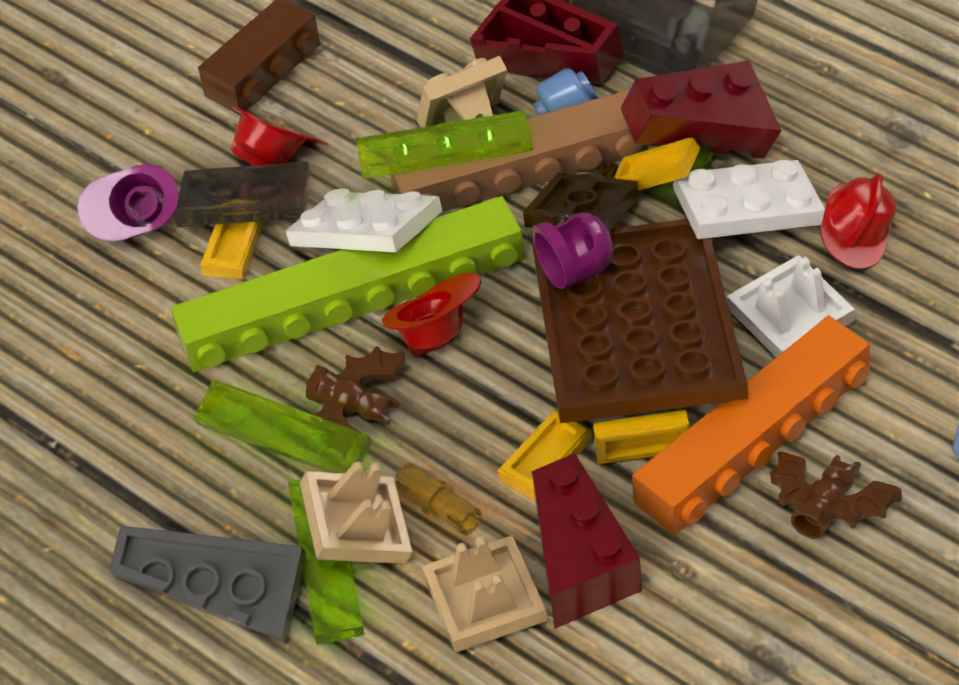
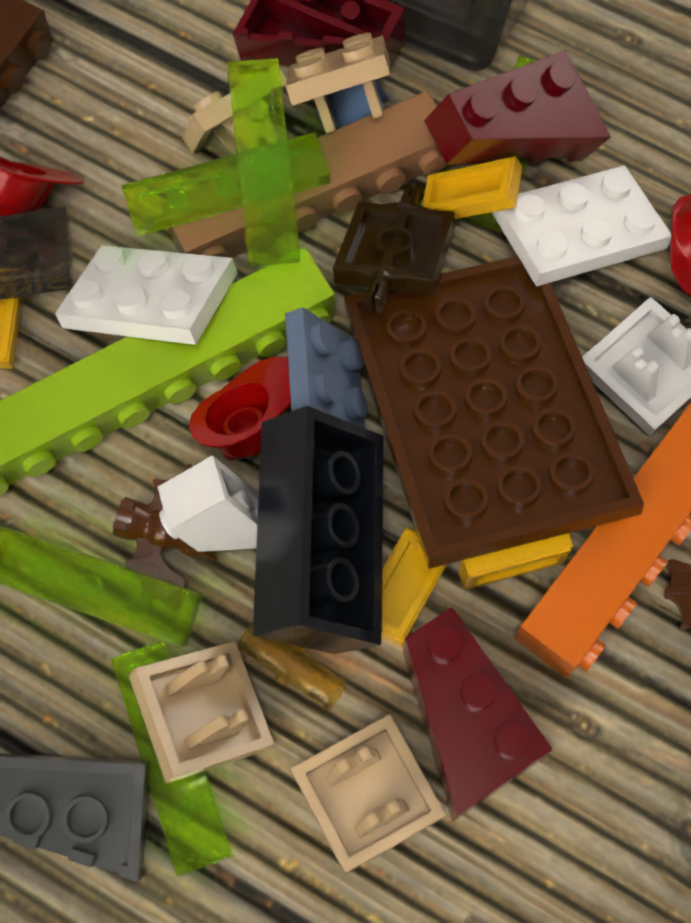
camera: 15 degrees left, 20 degrees up
(392, 374) = (210, 508): none -> white slope
(475, 126) = (263, 162): none -> clear neon green tile
(475, 396) = (319, 533): none -> black brick
(502, 288) = (324, 368): none -> sand blue plate
(533, 63) = (322, 74): none -> tan plate
(573, 249) = (406, 325): magenta helmet -> none

